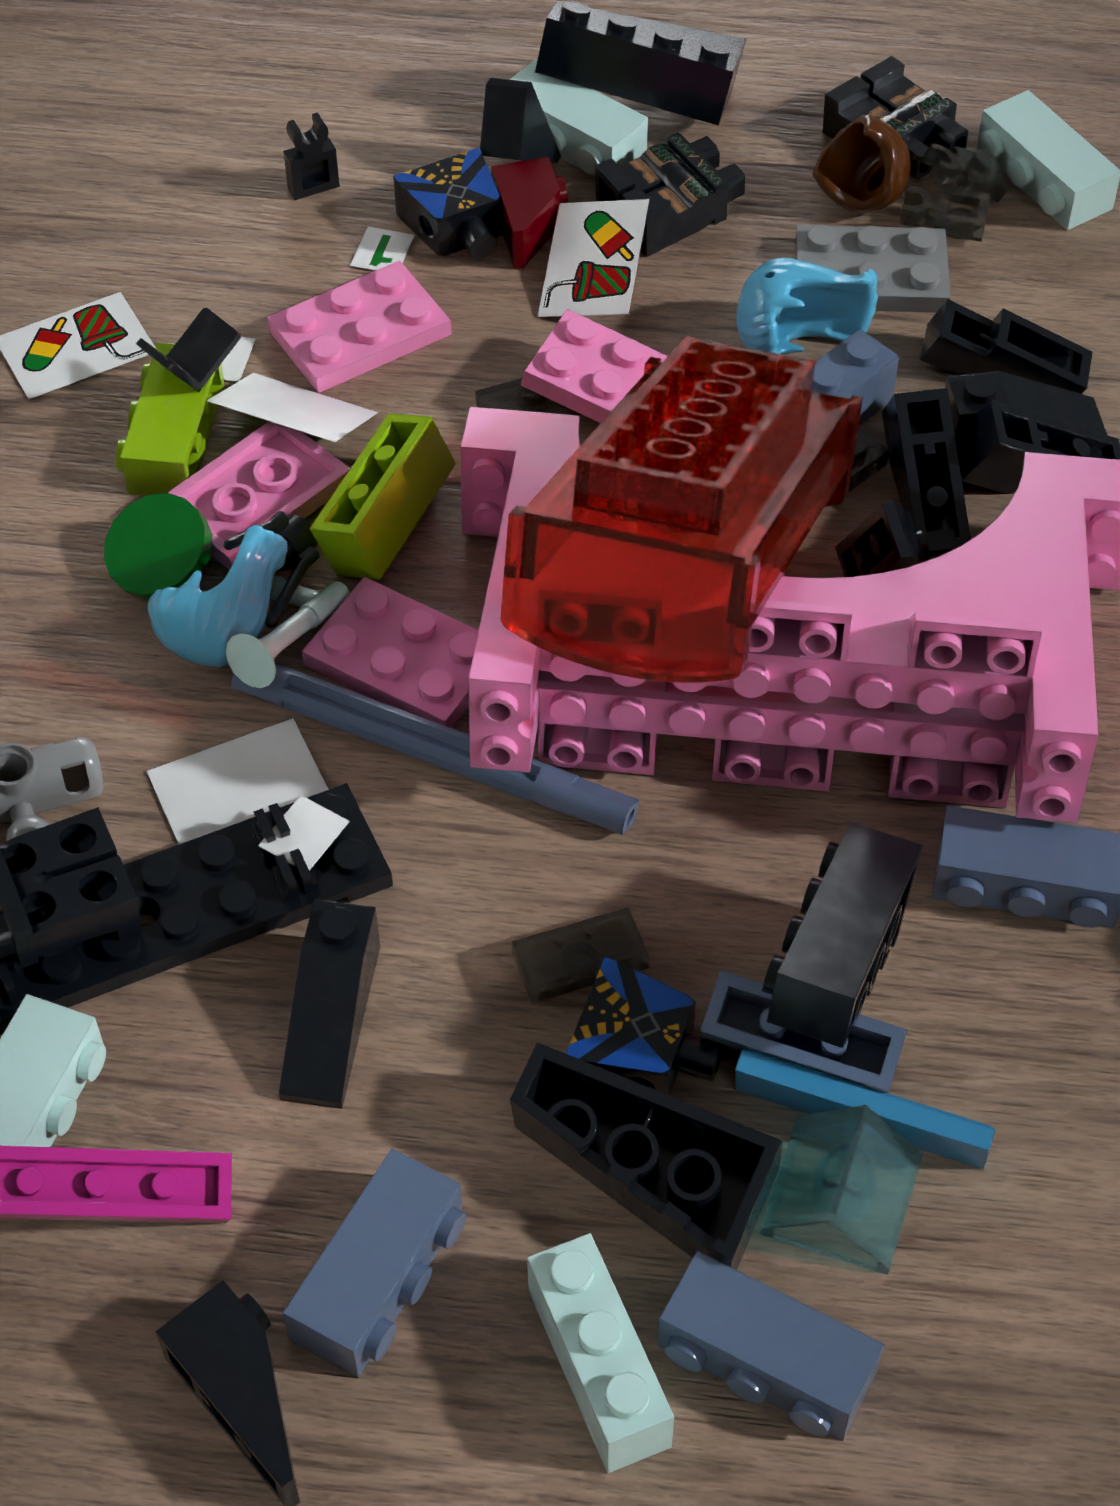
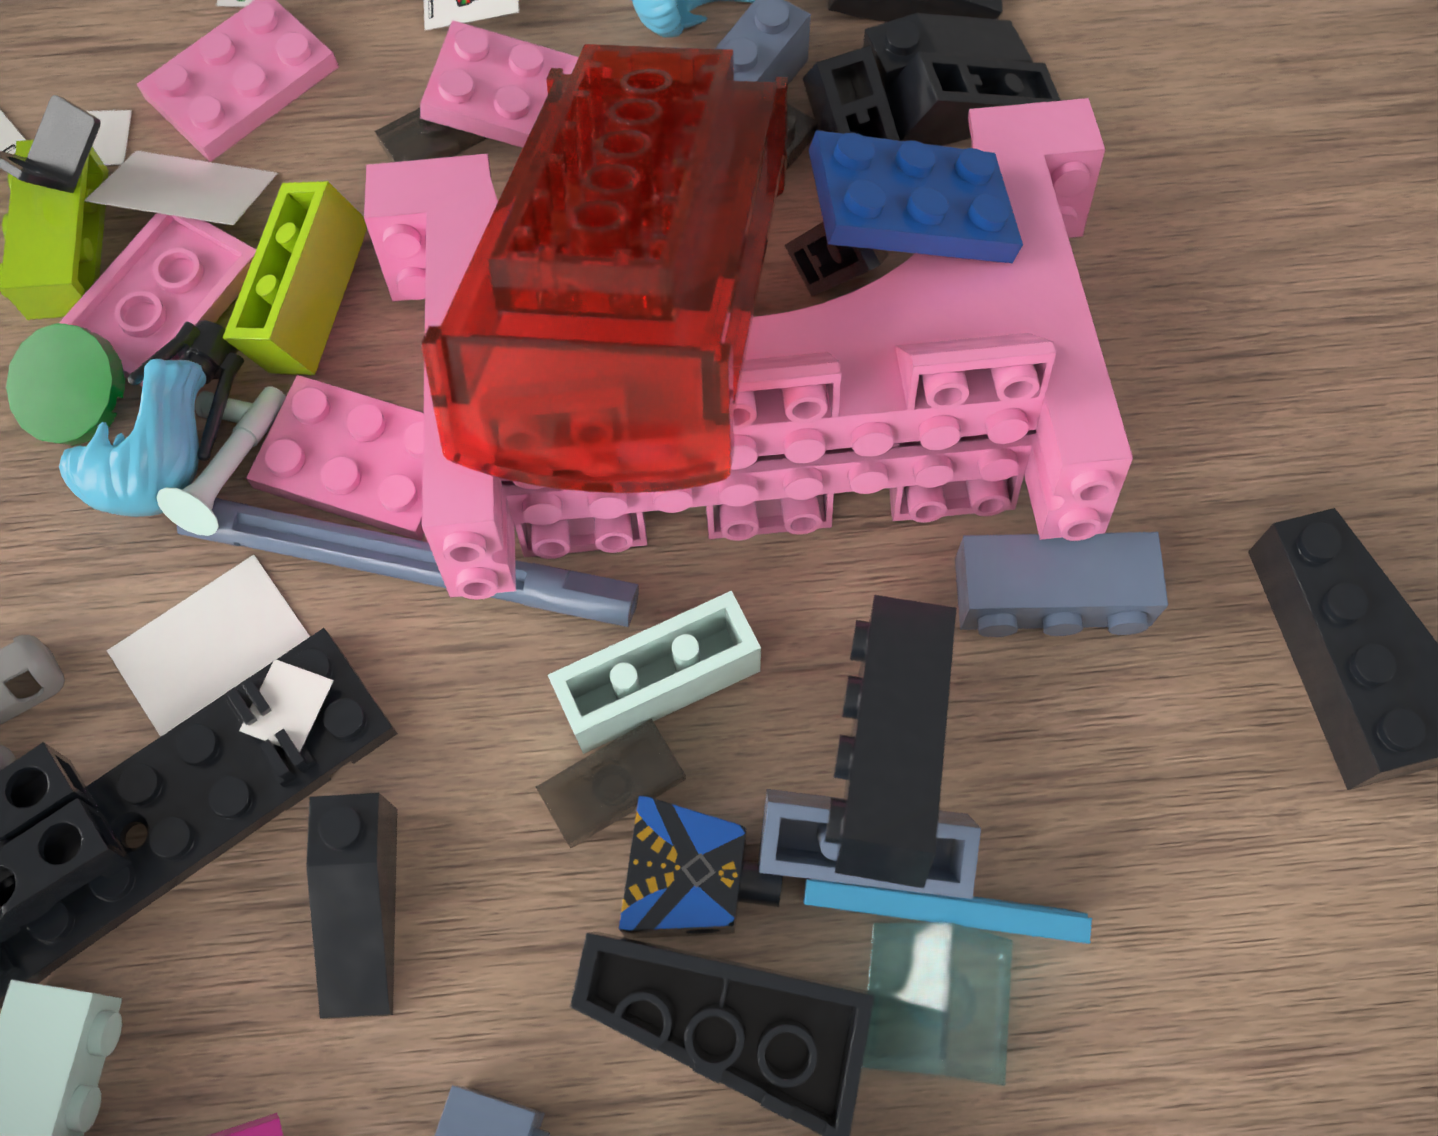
camera: 10 degrees left, 15 degrees up
(642, 865) = (657, 671): none -> light aqua brick
(952, 504) = (913, 198): none -> blue plate

